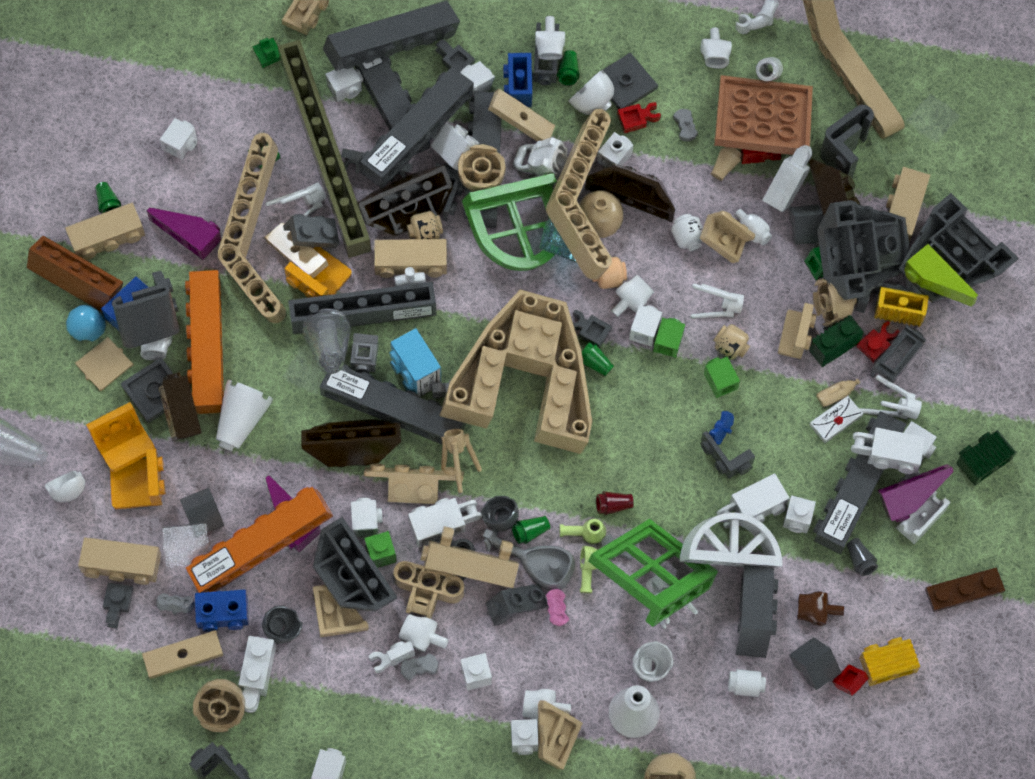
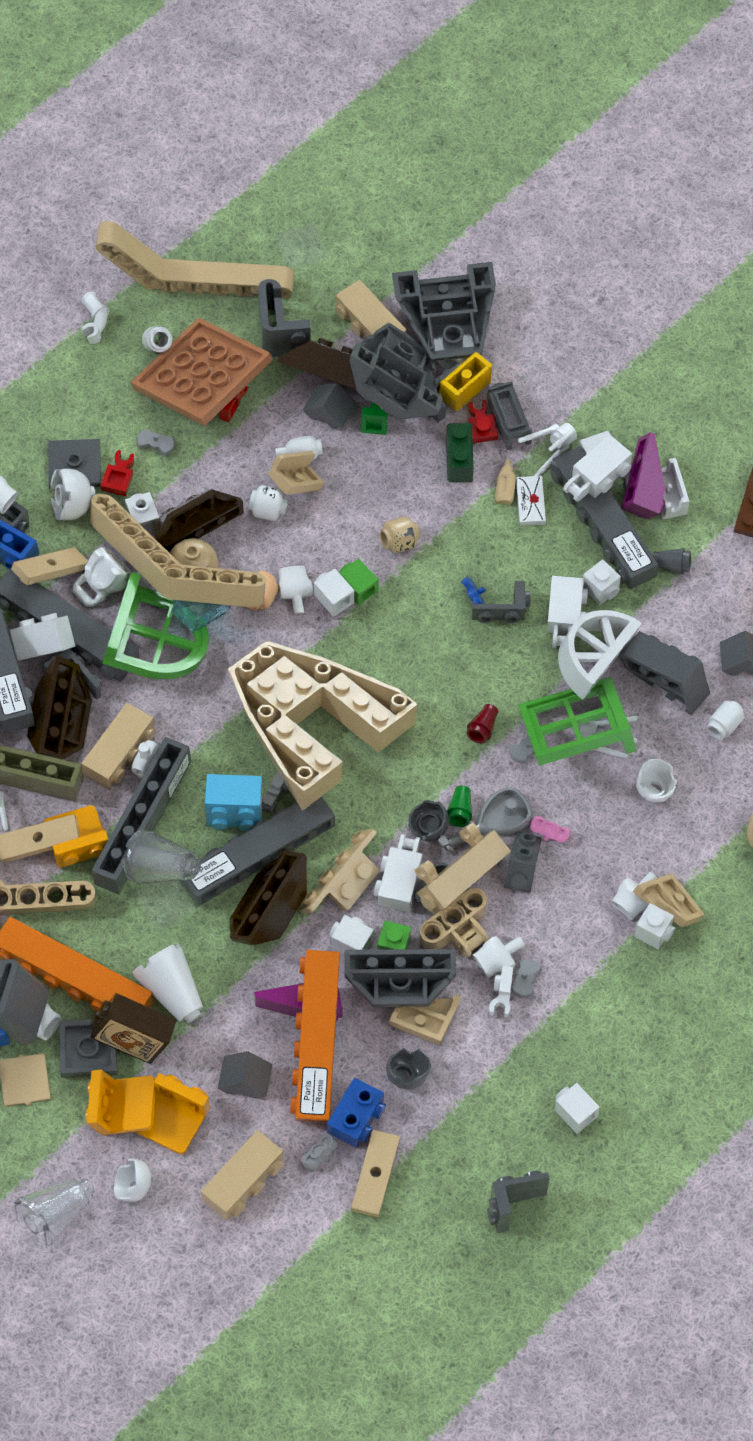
camera: 55 degrees left, 5 degrees down
(117, 600) = (280, 1203): dark grey plate -> none
(184, 543) = (268, 1107): clear piece -> none
(219, 705) = (452, 1164): tan cylinder -> none
(256, 670) = (438, 1117): white brick -> none
(313, 231) = (32, 810): dark grey bracket -> none
(364, 353) = (188, 837): light grey window -> none
(425, 226) = (97, 714): tan head -> none
(455, 441) = (339, 812): tan plant -> none
(476, 671) = (567, 930): white brick -> none
(481, 168) = (87, 623): tan cylinder -> none
(568, 70) = (29, 500): green cone -> none
(585, 531) = (493, 763): yellowish green bar -> none
(586, 569) = (527, 771): yellowish green bar -> none
(591, 330) = (303, 638): dark grey plate -> none
(596, 360) = (337, 652): green cone -> none
(634, 712) = (690, 823): white cone -> none
(715, 51) = (101, 371): white piece -> none
(721, 376) = (426, 563): bright green brick -> none
(726, 161) = (220, 433): tan cone -> none
(731, 302) = (358, 513): white plant -> none
(789, 179) = (282, 388): white brick -> none
(795, 332) = (428, 476): tan bracket -> none
(816, 608) = (694, 625): reddish brown piece -> none
(831, 304) = (422, 433): tan cylinder -> none
(935, 275) = (462, 332): lime slope -> none
(985, 457) = (649, 407): dark green brick -> none

